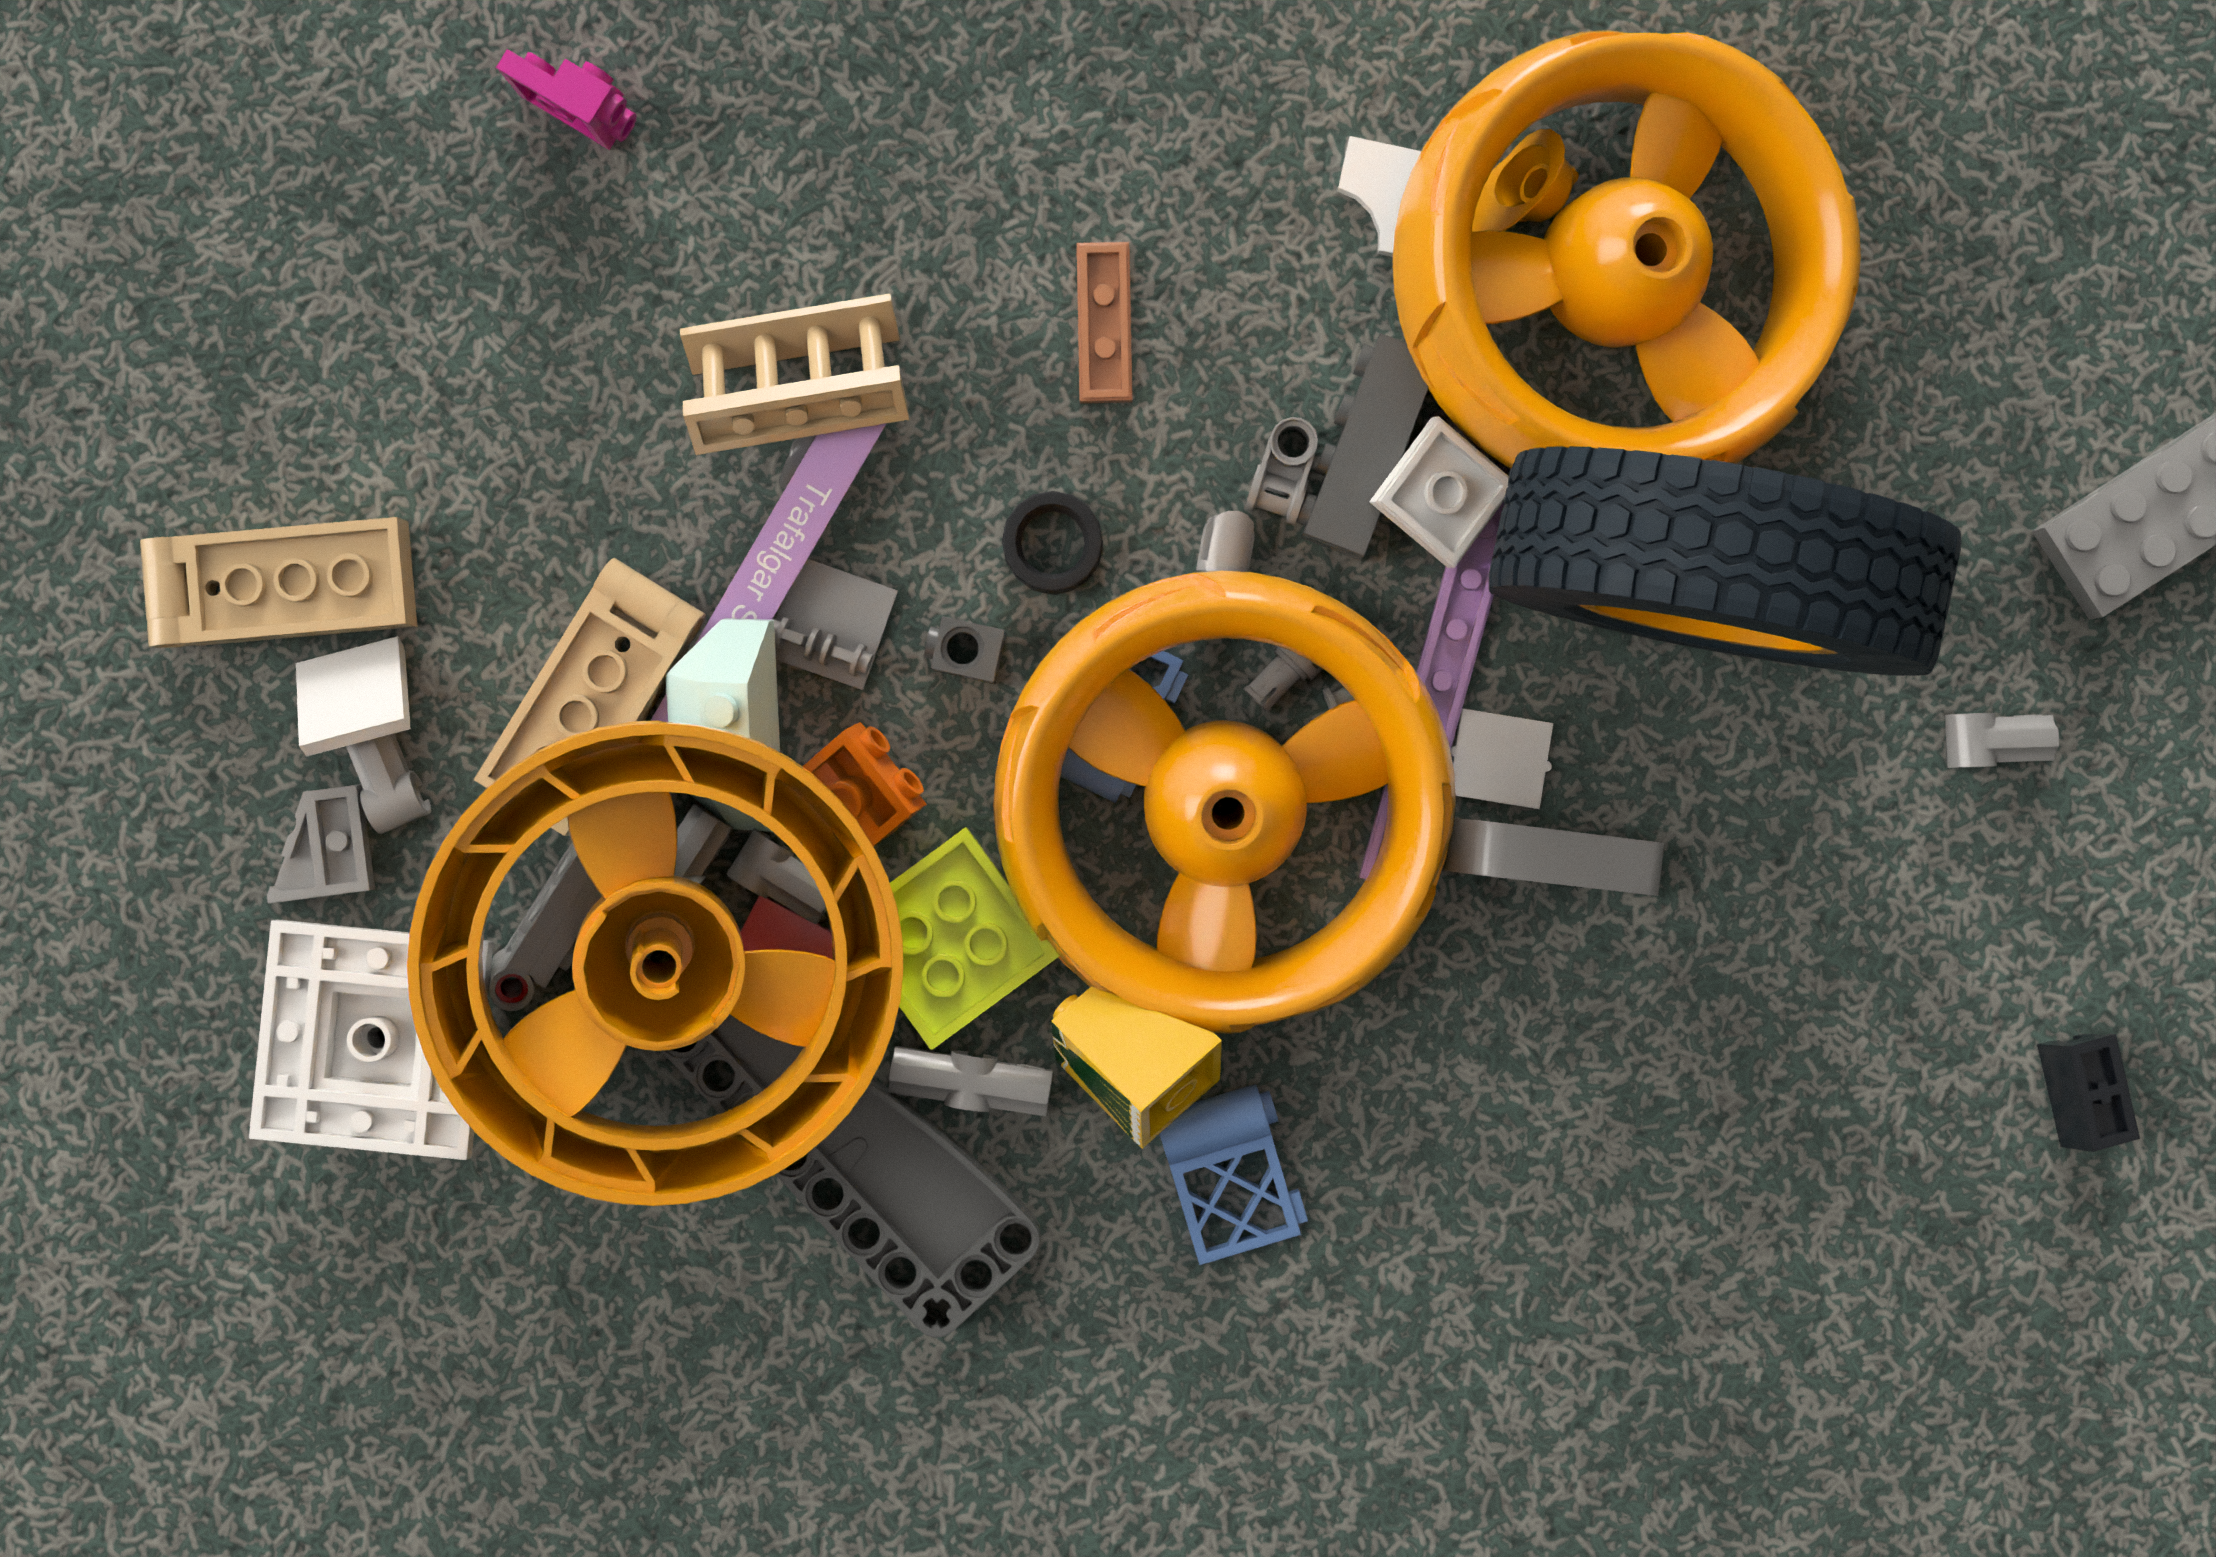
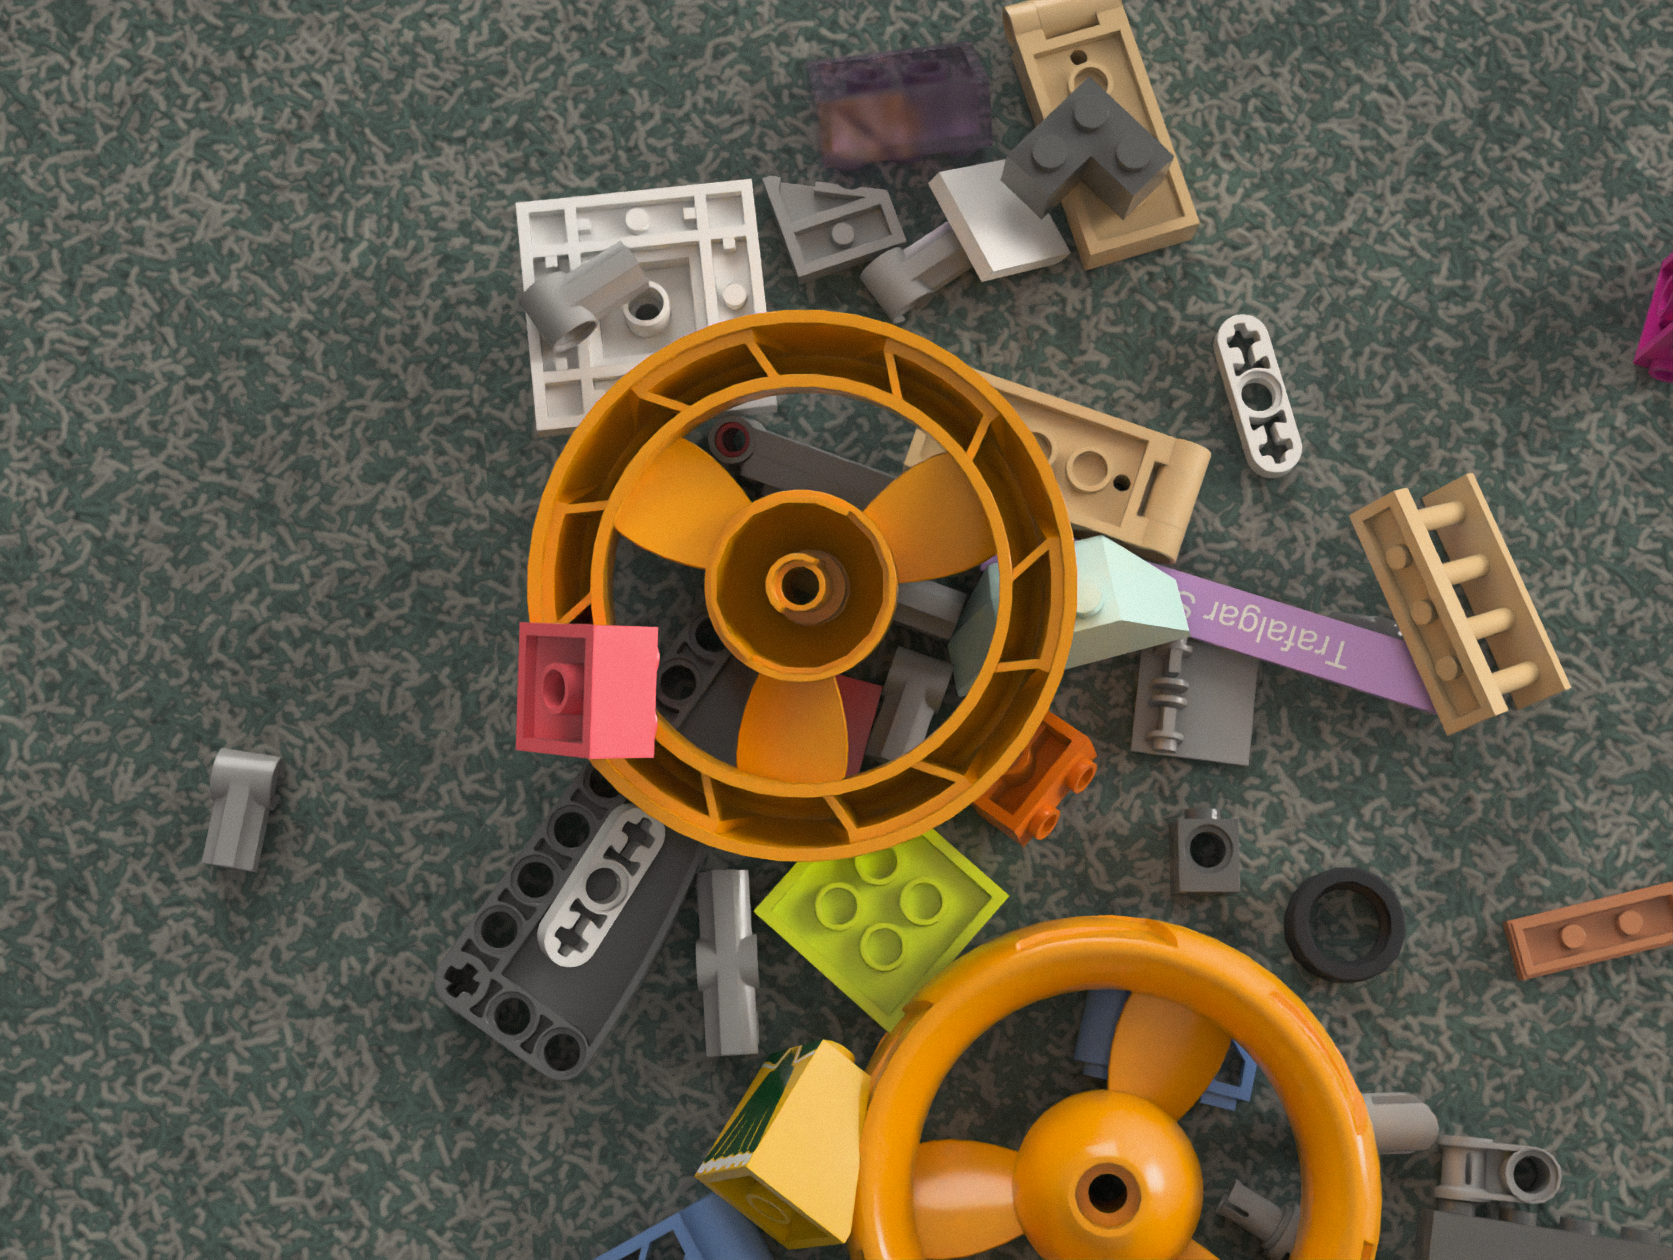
camera: 75 degrees right, 10 degrees down
(222, 762) = (900, 105): none -> slope
(299, 607) = (1087, 142): none -> dark grey brick
(356, 1108) = (571, 304): none -> light grey piece
(530, 516) = (1232, 360): none -> white beam
(711, 1168) = (587, 690): none -> coral slope
(738, 1470) = (243, 795): none -> light grey piece
(899, 1216) = (627, 879): none -> white beam

